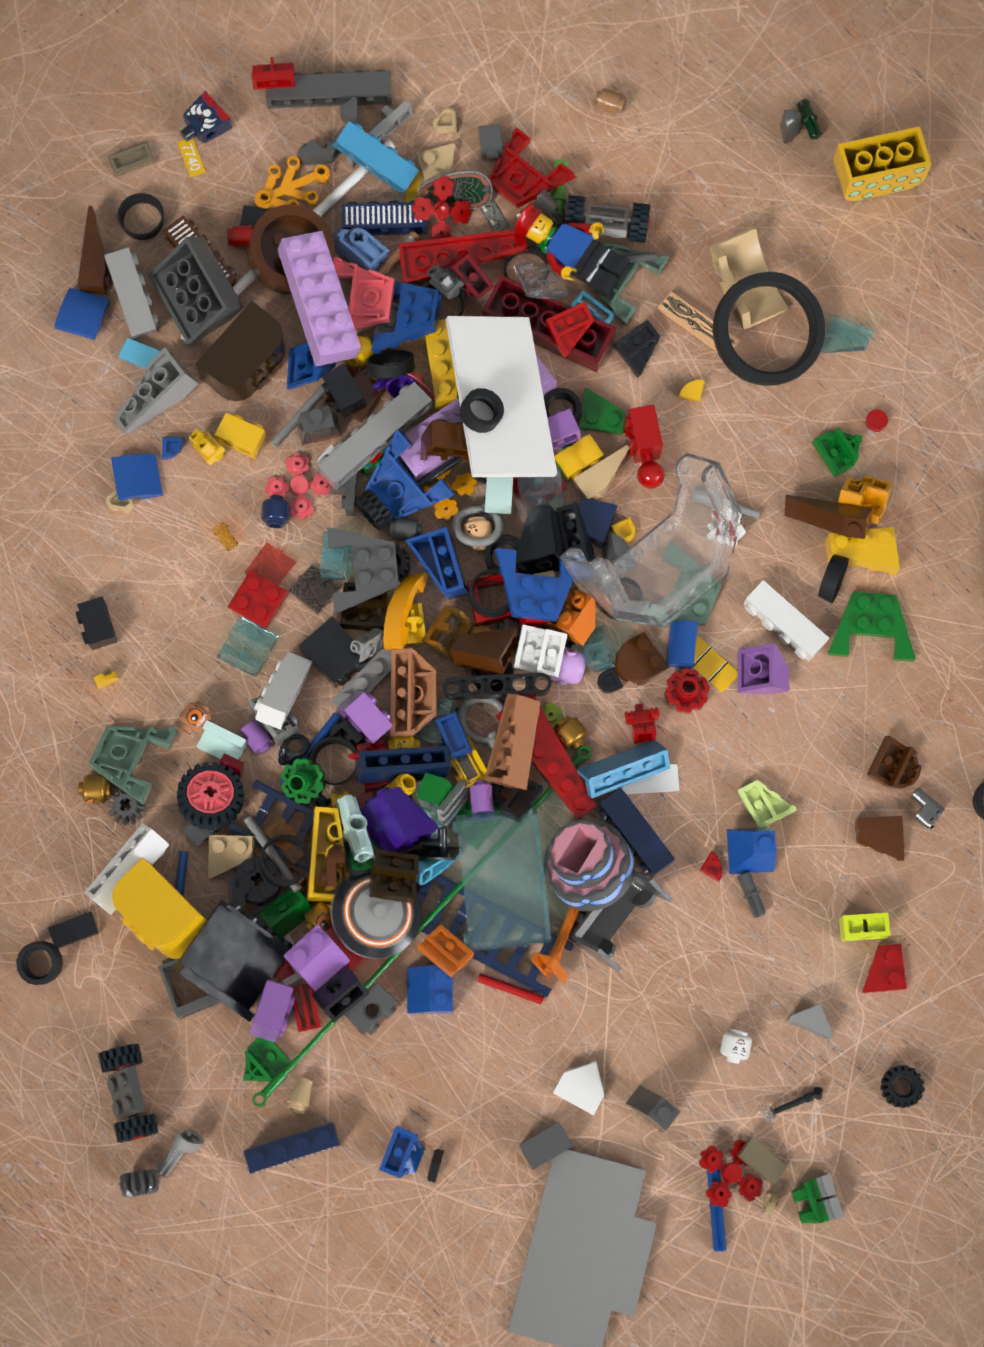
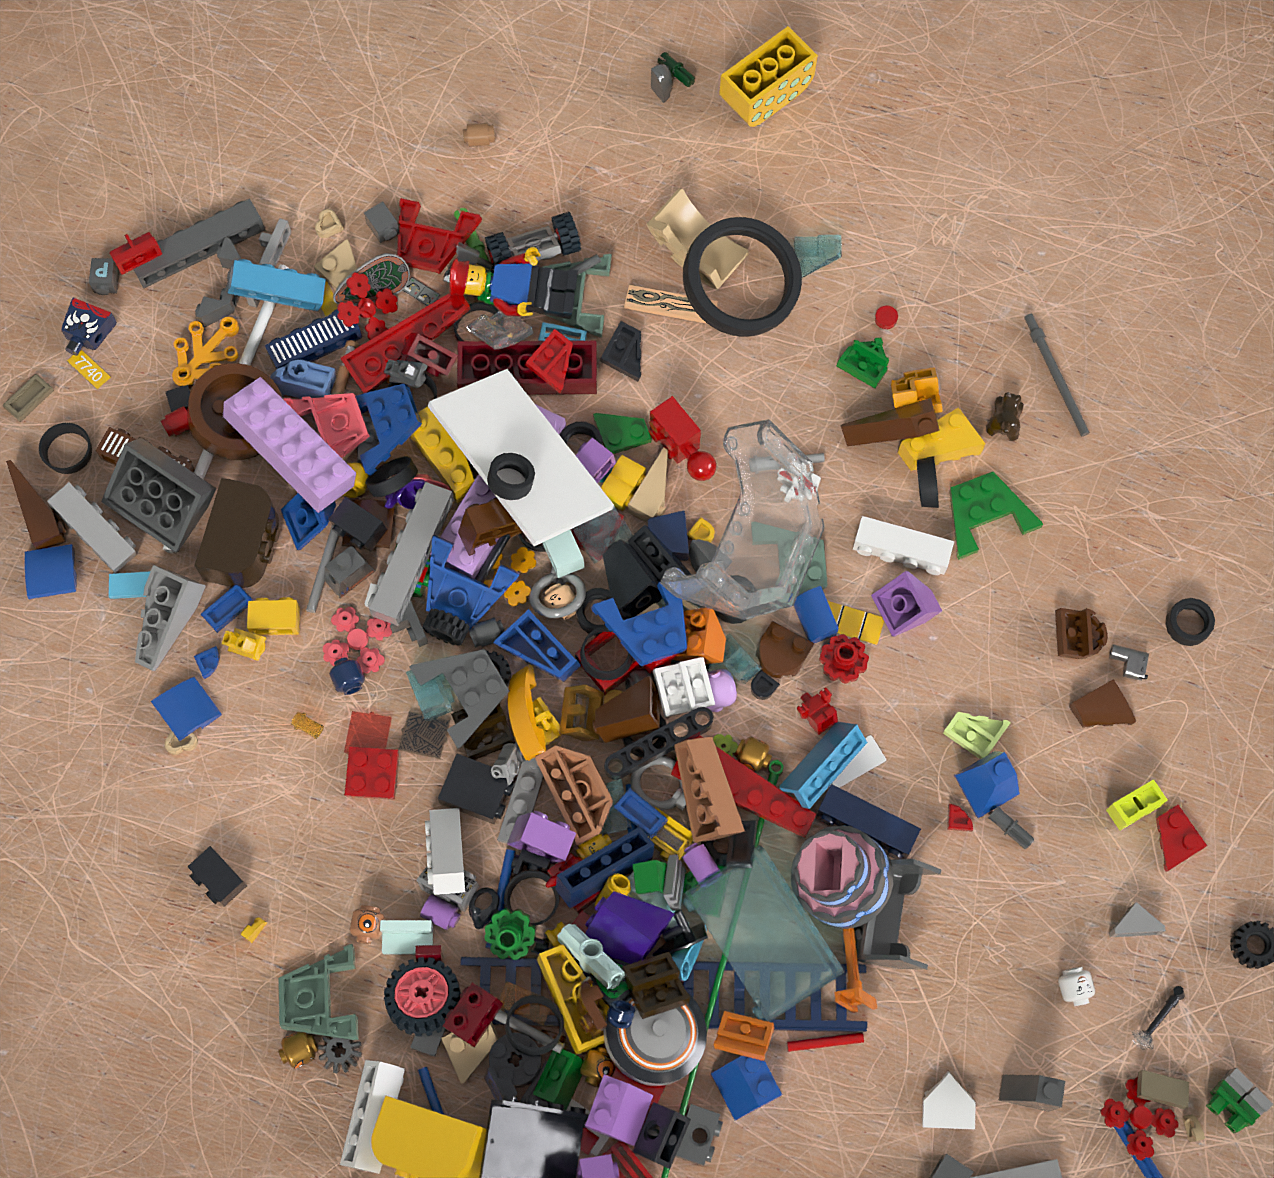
camera: 25 degrees left, 5 degrees down
(207, 410) = (226, 608): none -> blue tile
(239, 84) = (103, 276): none -> dark grey brick
(240, 828) = (472, 1014): none -> dark red brick
(247, 646) = (384, 825): clear light blue slope -> none
(354, 884) = (621, 1014): none -> dark blue tile
(692, 390) = (698, 369): yellow tile -> none
(933, 554) = (1006, 418): none -> dark brown animal

